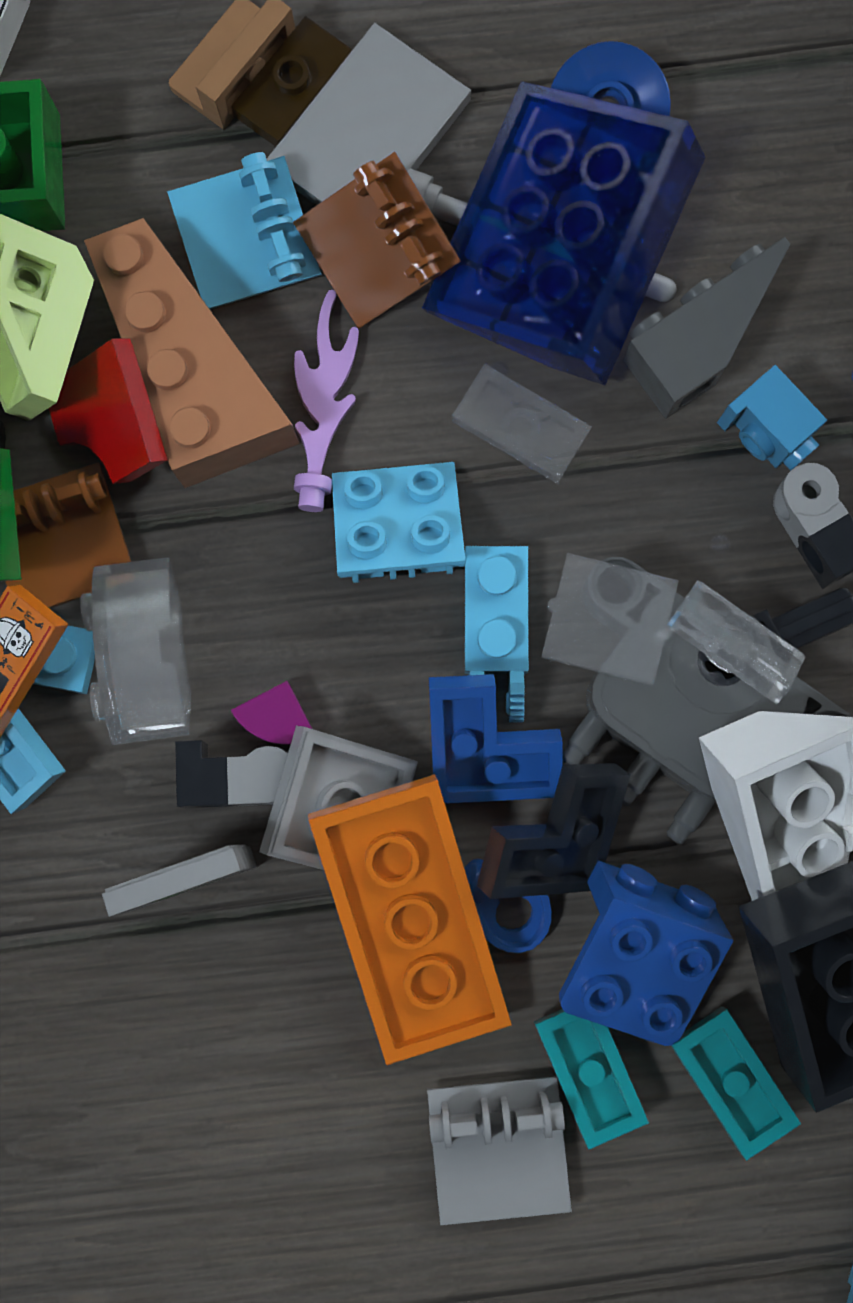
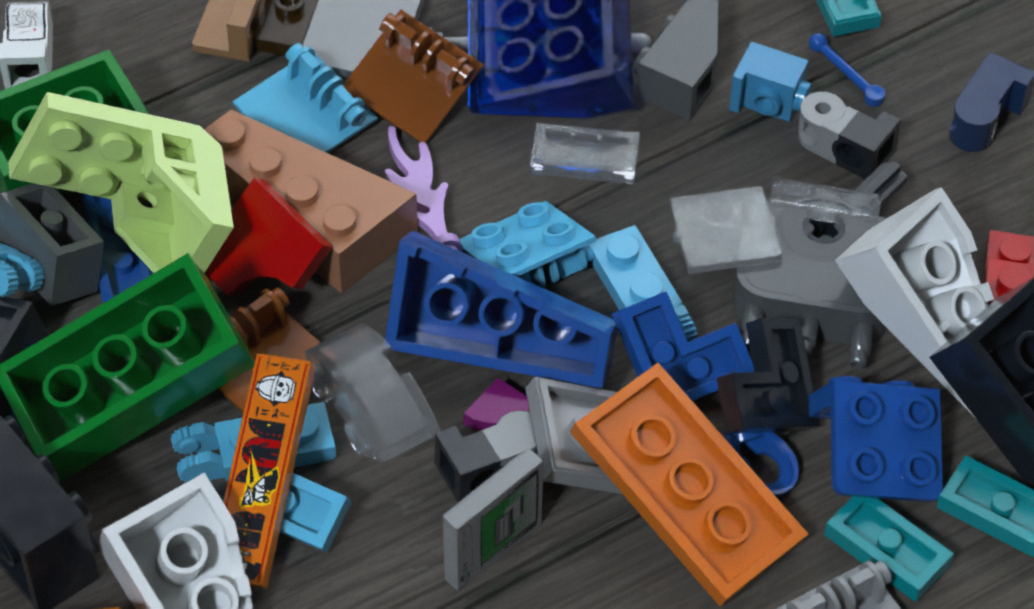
camera: 30 degrees left, 30 degrees down
(303, 621) = (488, 318): none -> blue wedge

